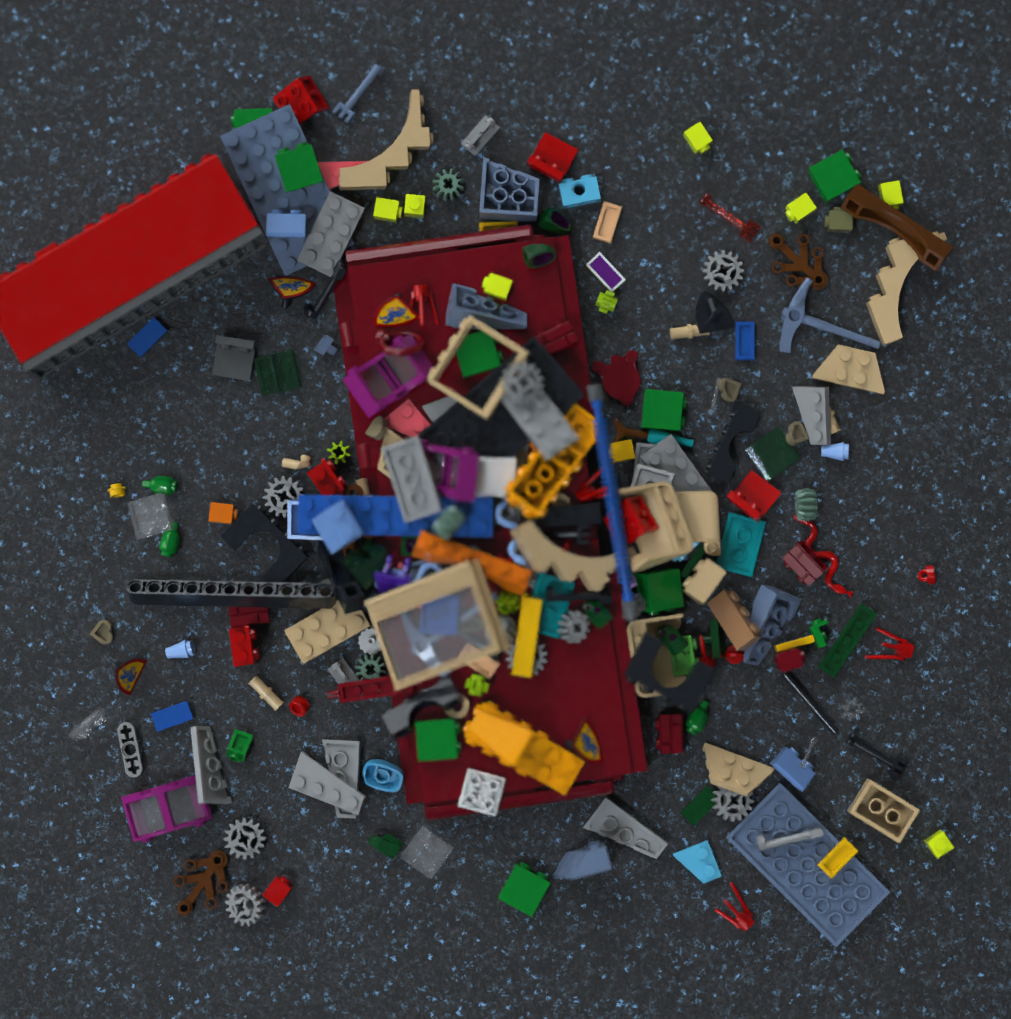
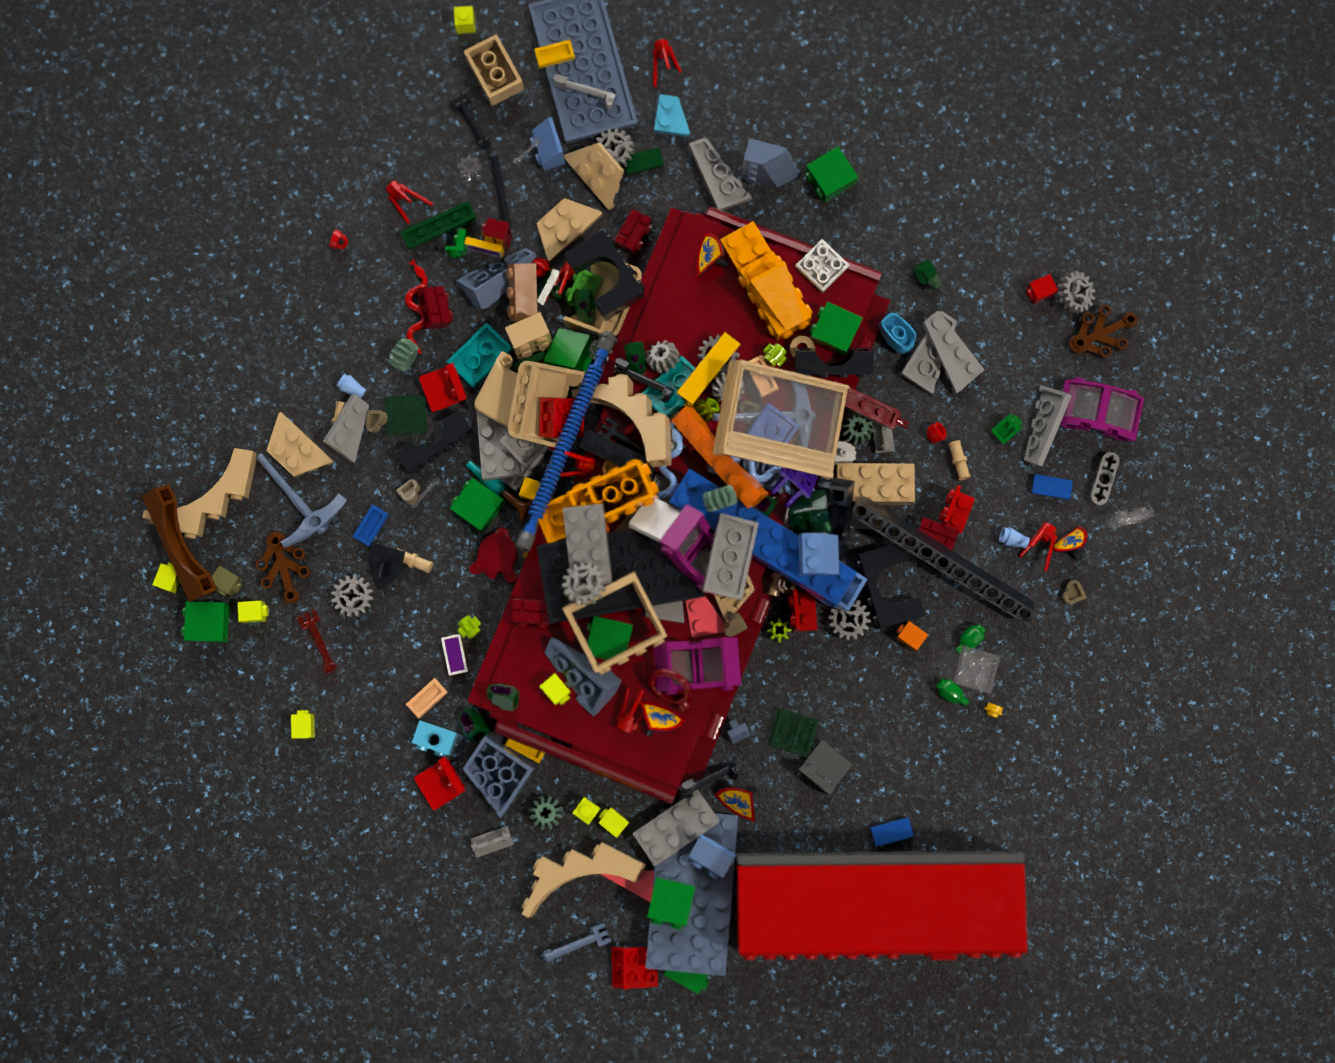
camera: 150 degrees left, 5 degrees down
(156, 669) = (1045, 534): none -> red plant
(240, 826) = (1041, 351): light grey gear -> none
(296, 464) = (822, 641): tan arm -> none
(426, 852) = (896, 250): clear plate -> none
(697, 719) = (607, 226): green plant -> none
(735, 705) = (564, 226): none -> tan wing

